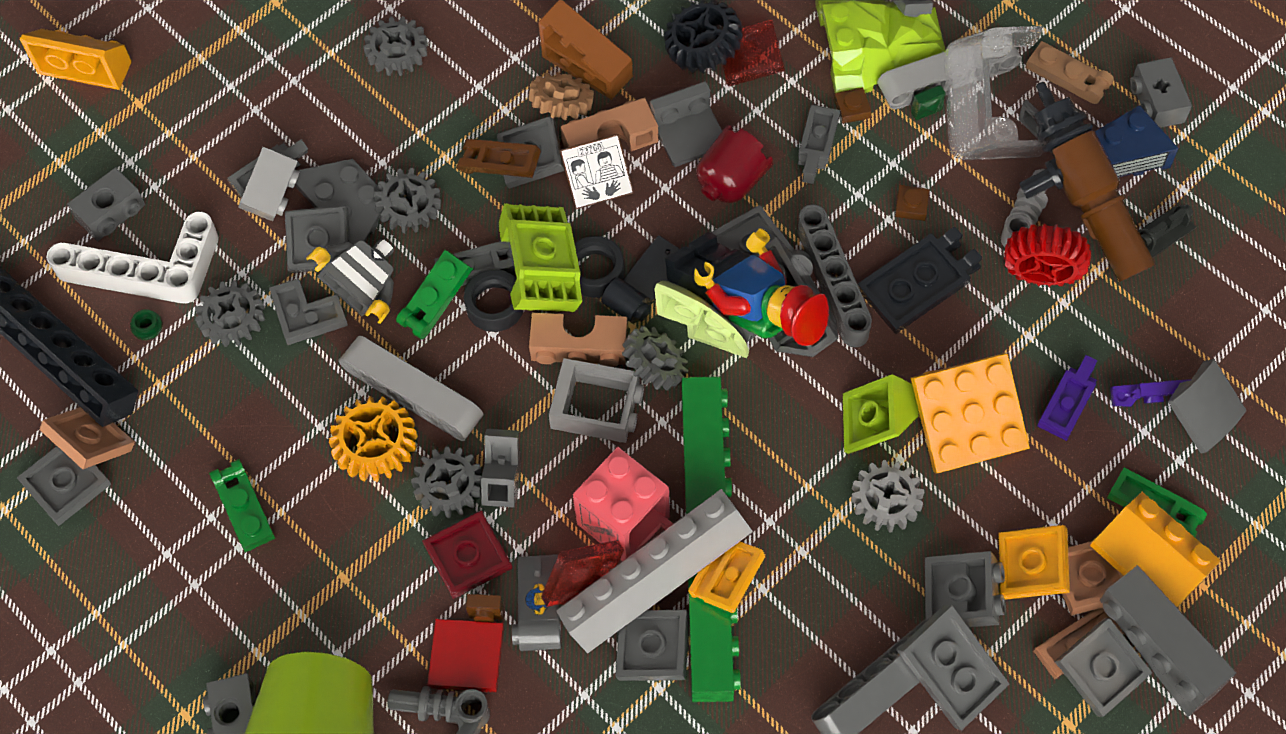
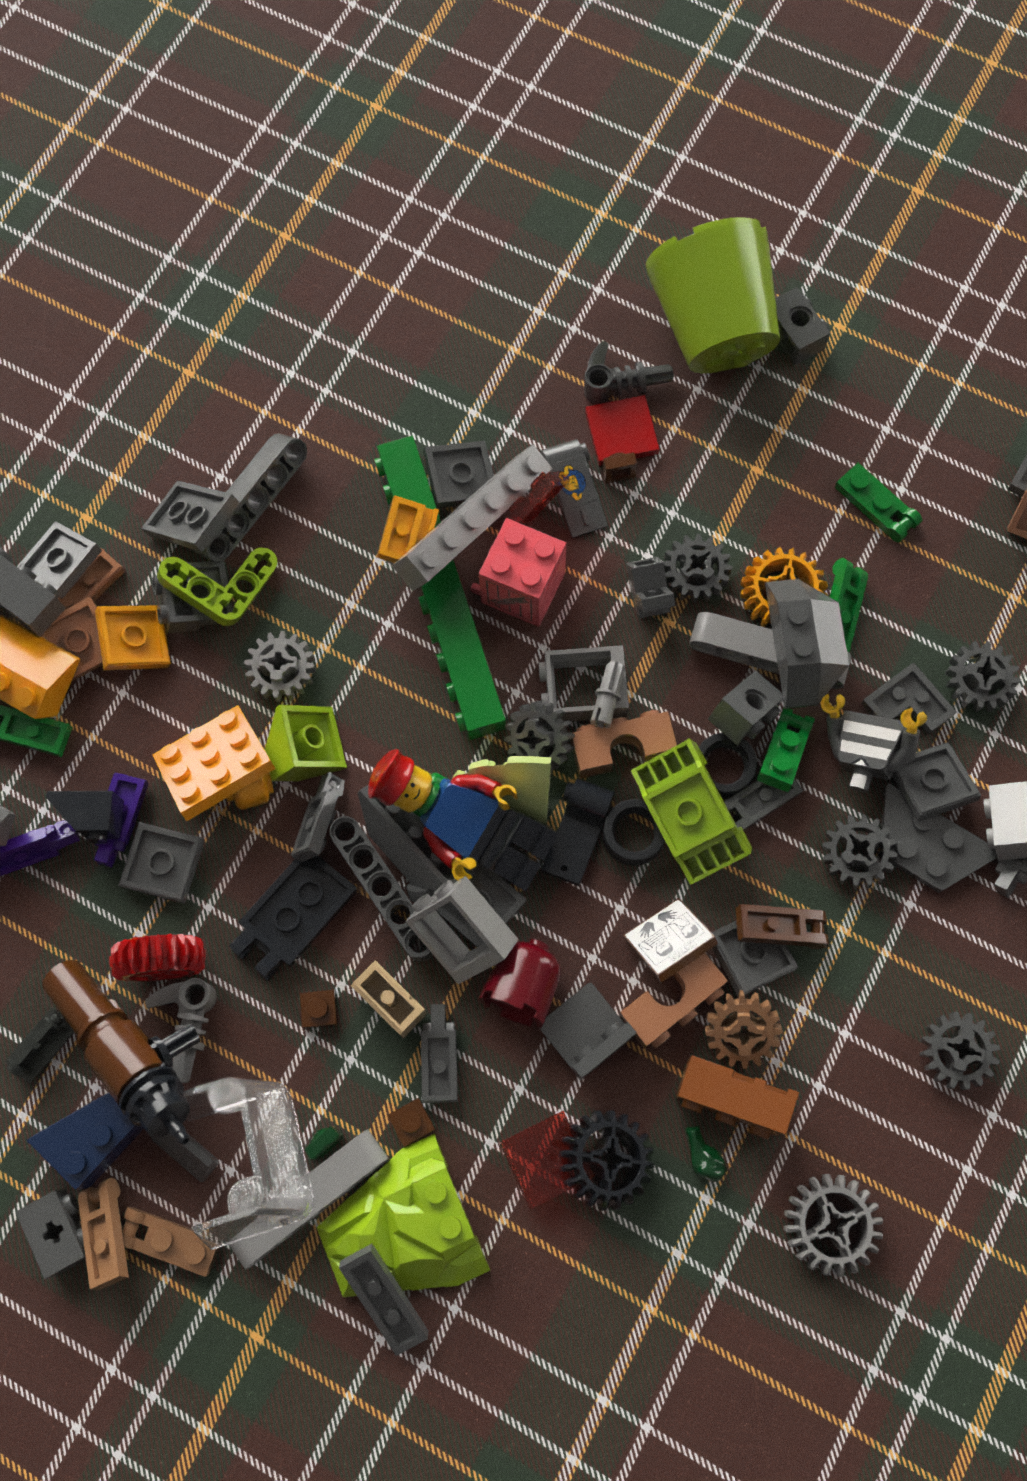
camera: 165 degrees right, 10 degrees up
(323, 409) = (848, 590): none -> green plate
(376, 372) = (806, 641): none -> dark grey wedge
(467, 554) = (653, 511): dark red plate -> none
(470, 327) = (746, 708): none -> dark grey brick
(579, 367) = (608, 695): none -> light grey axle
(624, 26) = (705, 1159): none -> dark green animal
(774, 205) = (446, 944): none -> light grey window
(849, 183) = (389, 999): none -> tan brick
(879, 343) = (317, 818): none -> dark grey hinge
(934, 573) = (218, 595): none -> lime beam
(1035, 348) = (161, 863): none -> dark grey plate
(1098, 392) = (90, 813): none -> black slope
(1120, 76) = (103, 1234): none -> medium nougat plate

